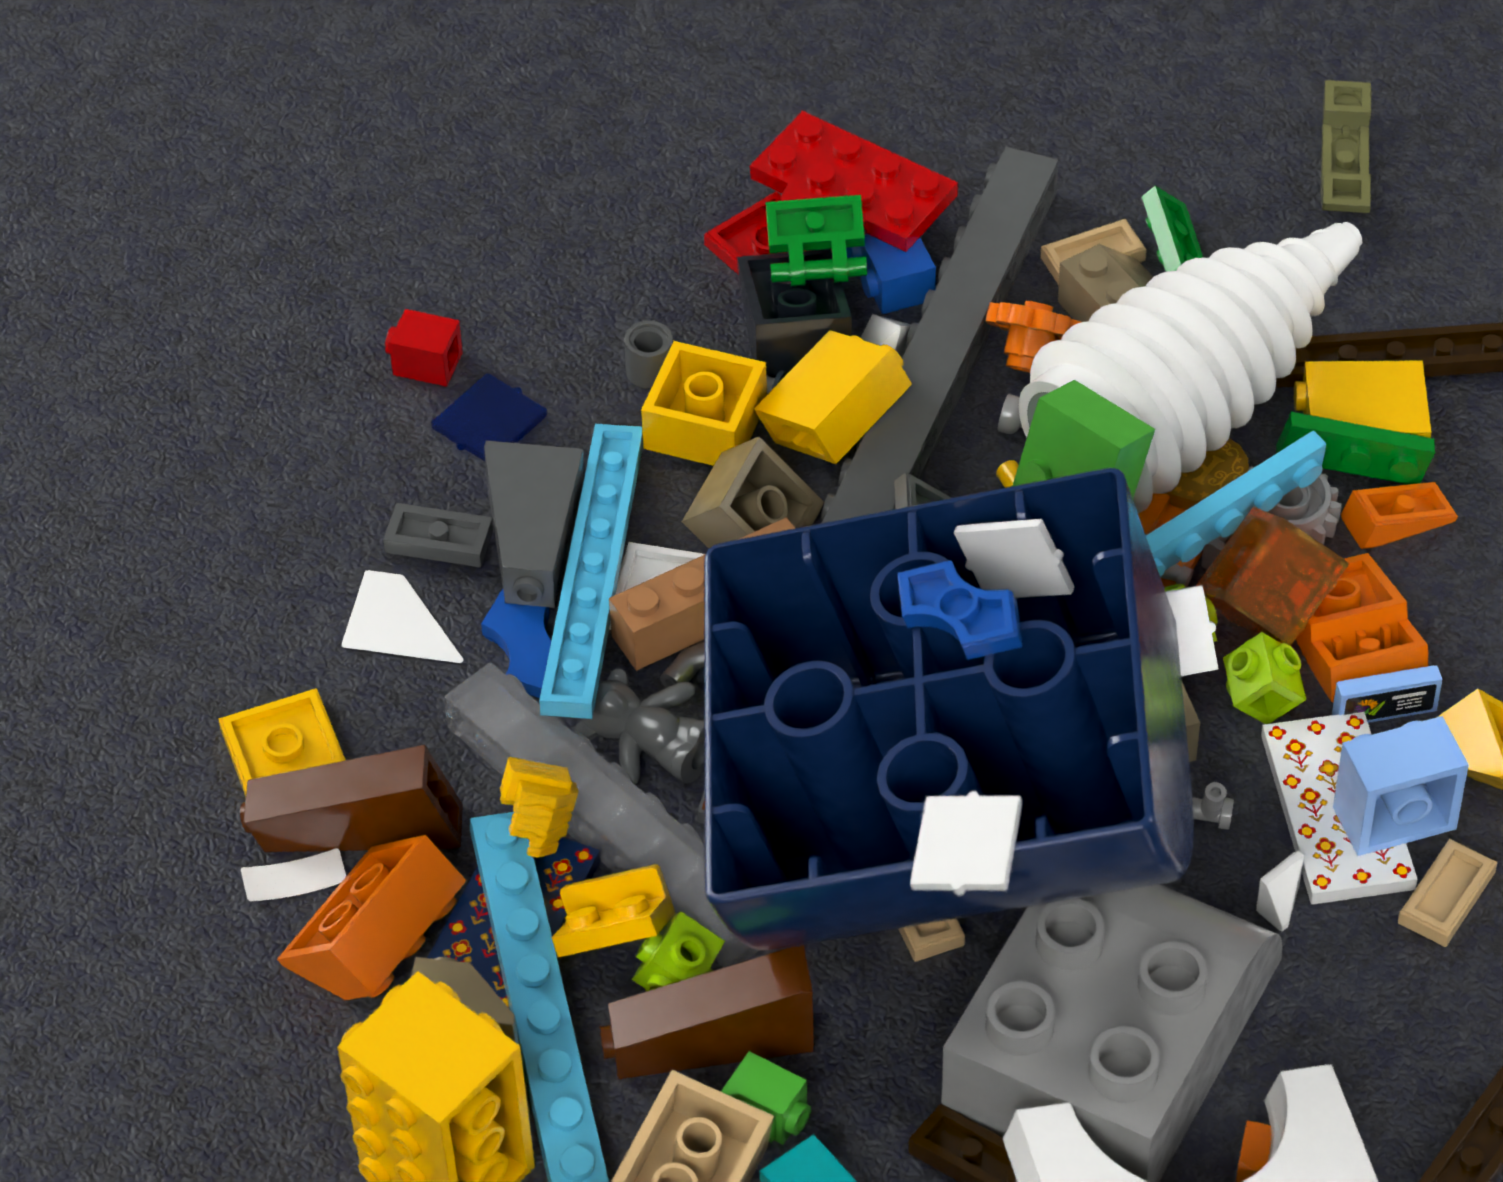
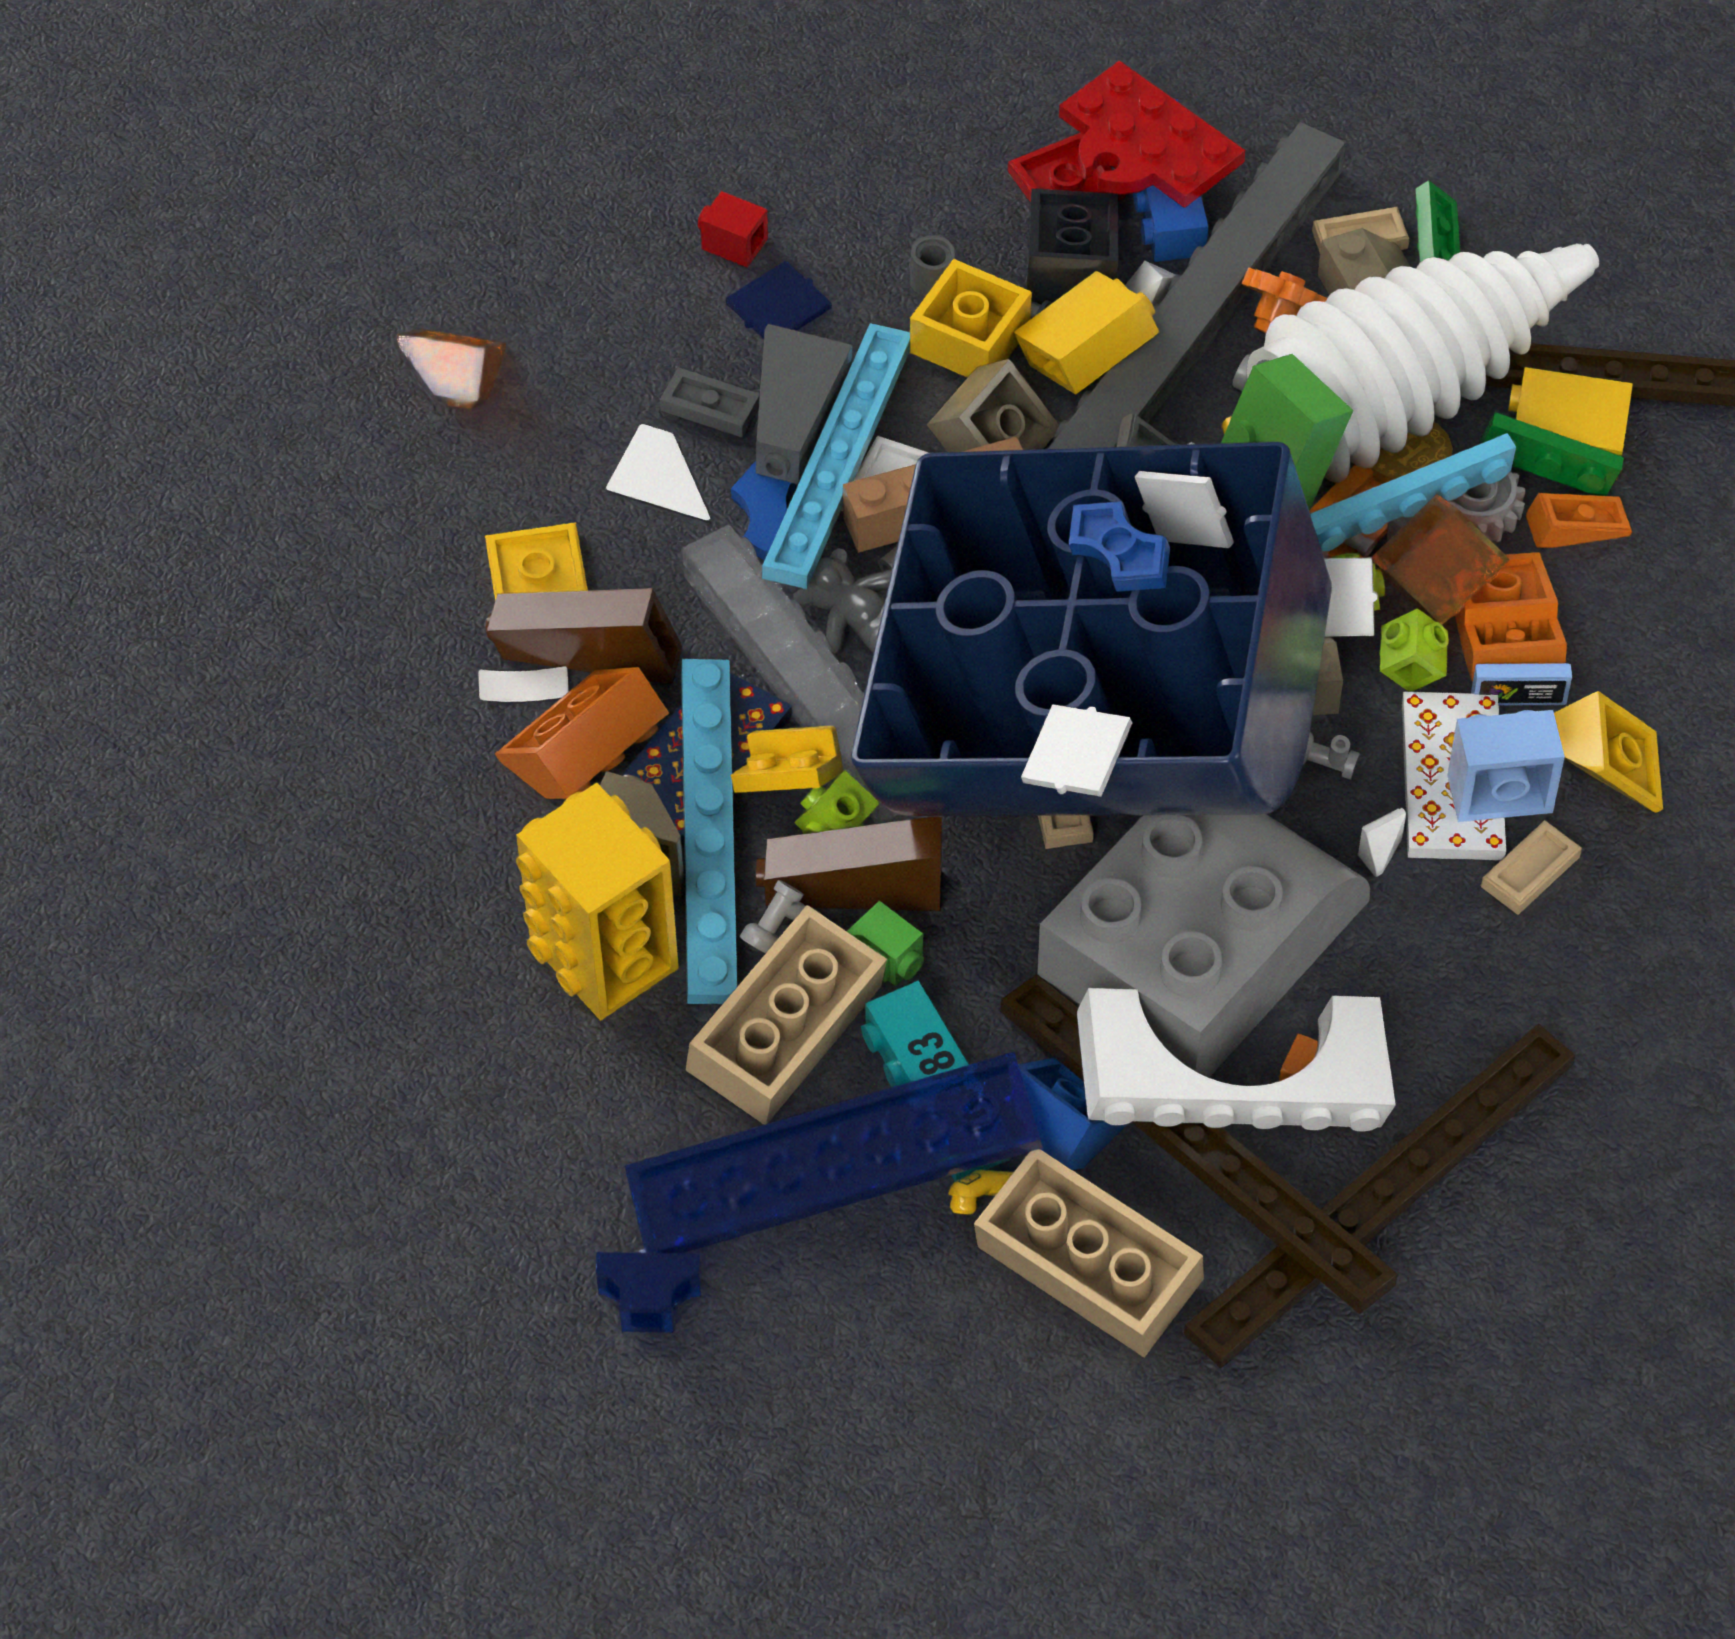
camera: 10 degrees right, 5 degrees up
(148, 538) = (454, 364): none -> clear orange slope
(540, 801) = (744, 655): yellow hair -> none
(642, 1074) = (784, 904): none -> light grey piece
(816, 225) = (1102, 171): green plate -> none
(1346, 147) = (1619, 170): olive slope -> none

